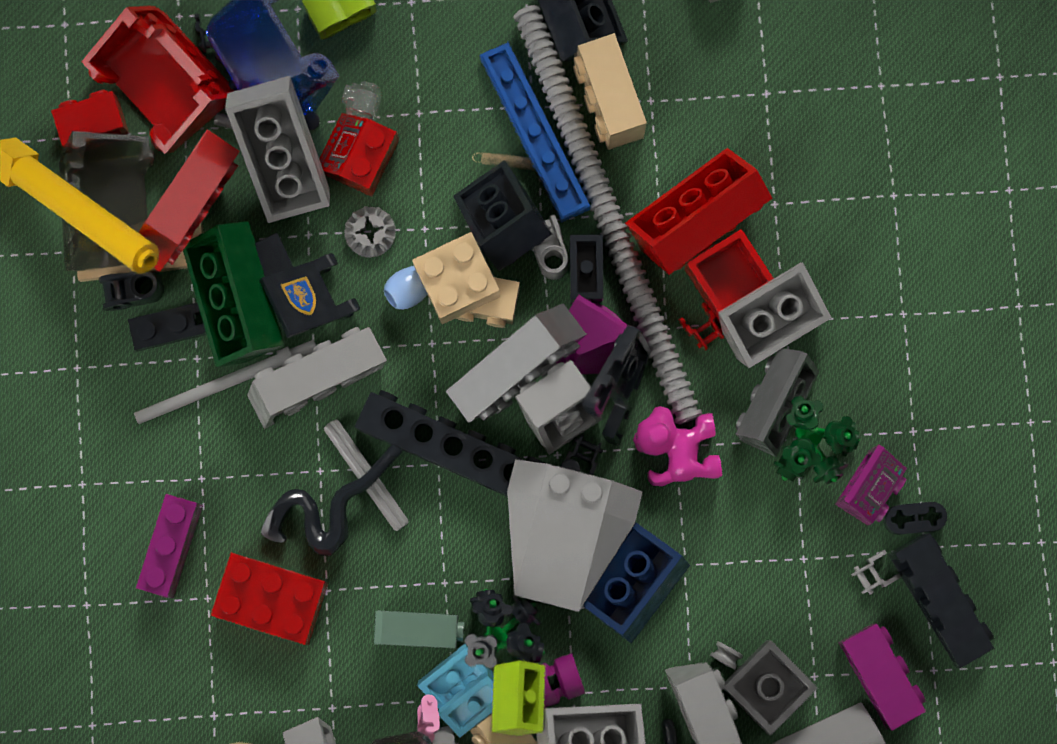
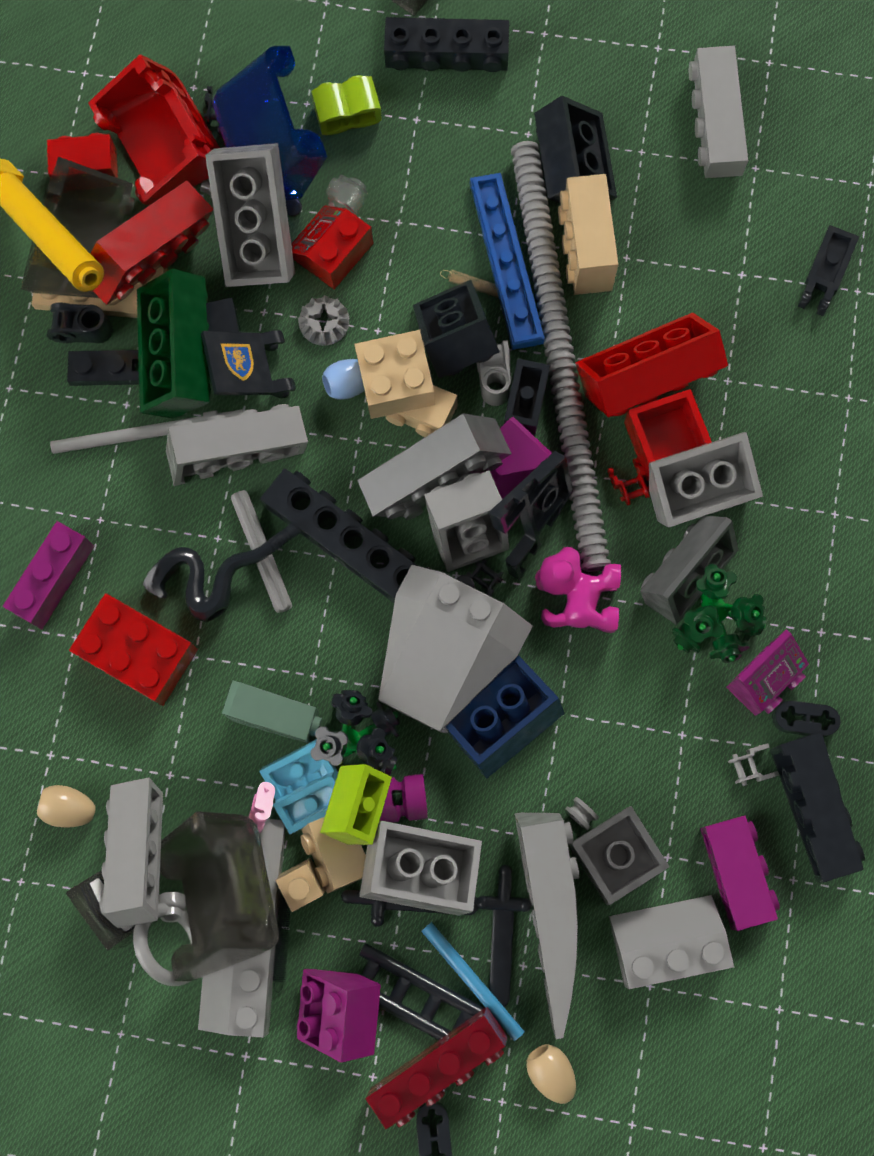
camera: 15 degrees right, 5 degrees down
(848, 69) = (829, 266): none -> black hinge

